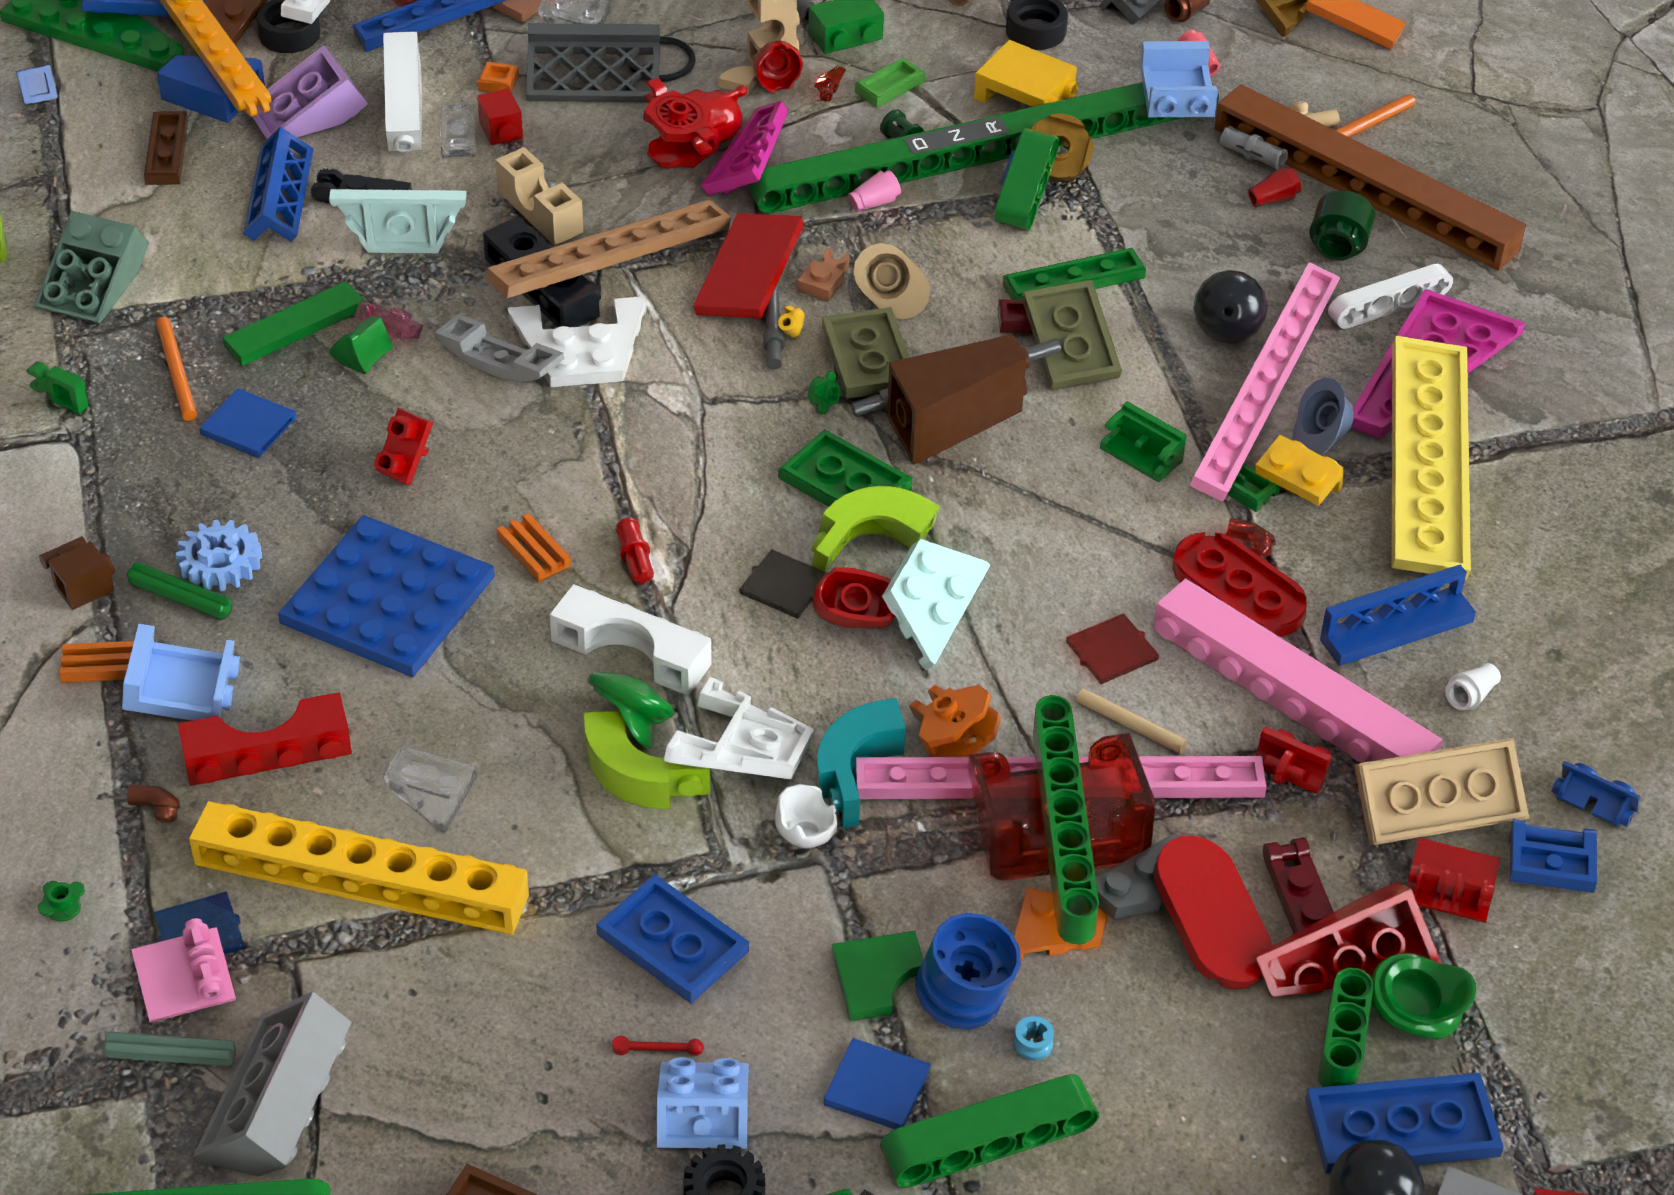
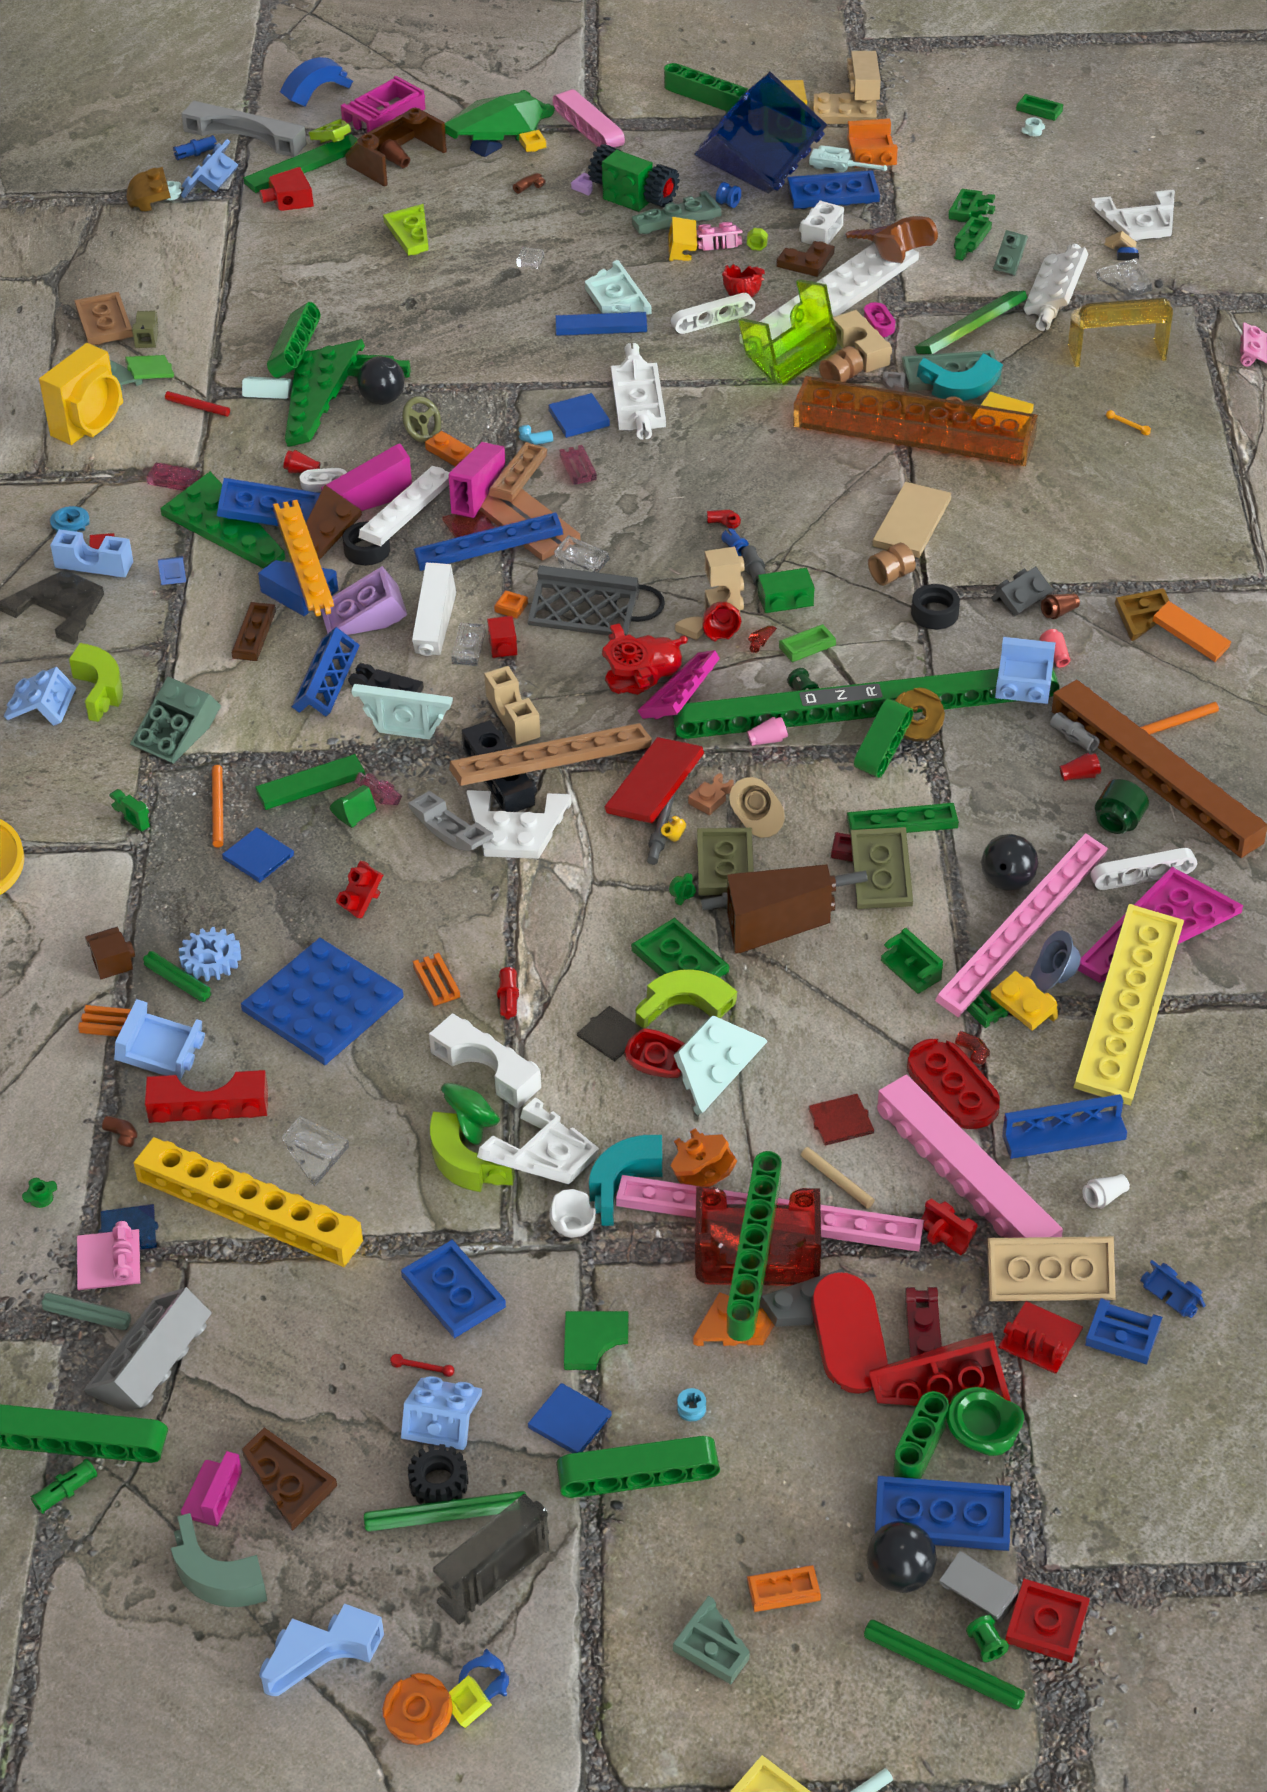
camera: 15 degrees right, 0 degrees up
(967, 971) = (656, 1333): blue wheel -> none
(1025, 76) = (911, 652): yellow panel -> none
(1327, 118) = (1134, 715): tan arm -> none

